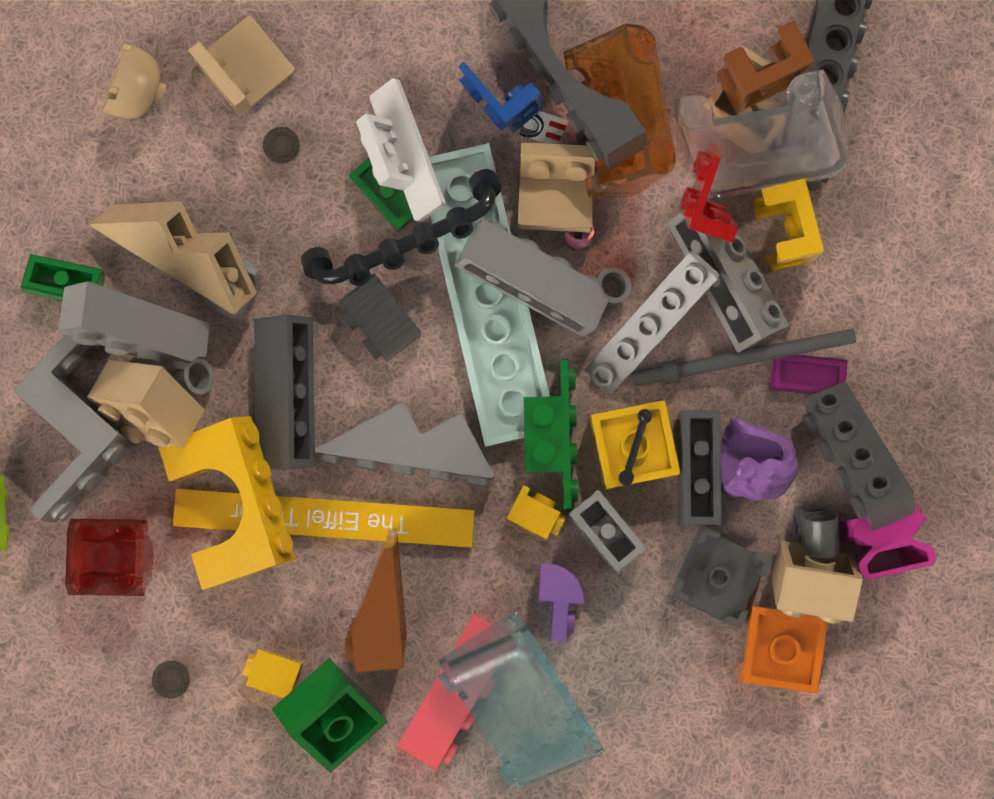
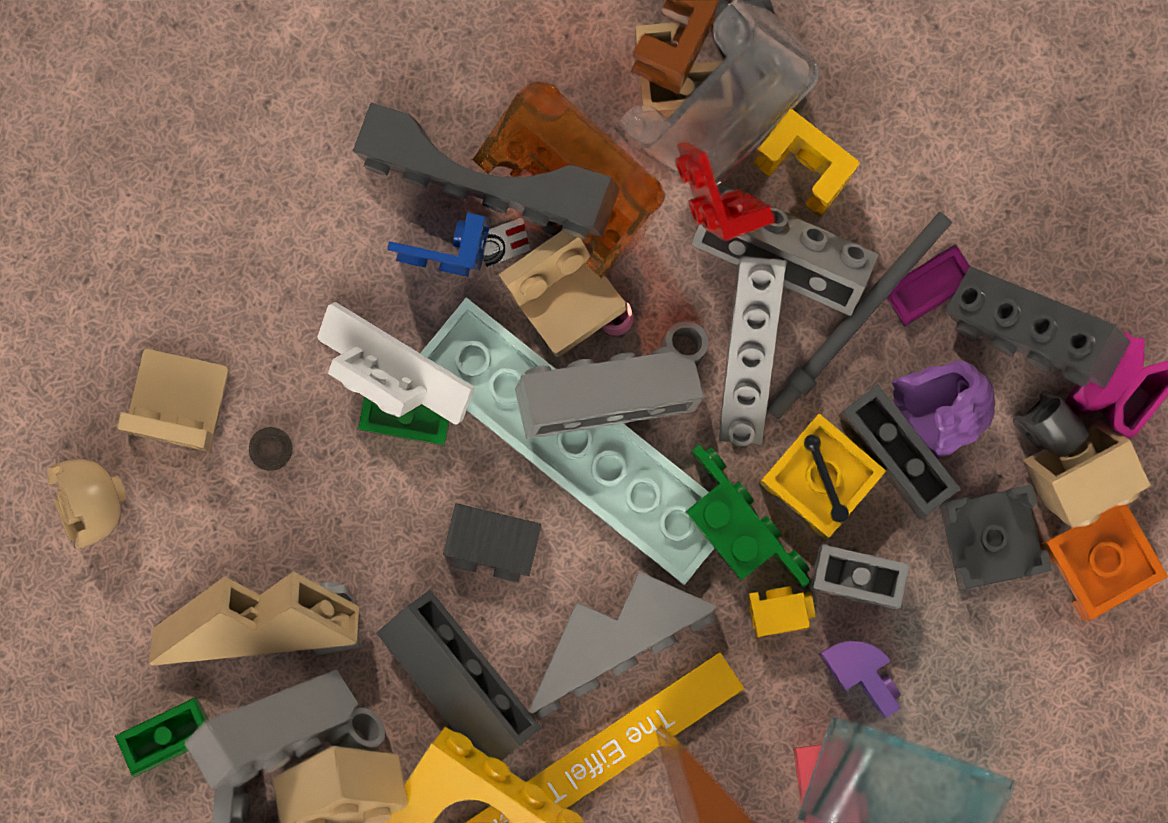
camera: 35 degrees left, 0 degrees up
(317, 260) = (477, 433): black bar -> none

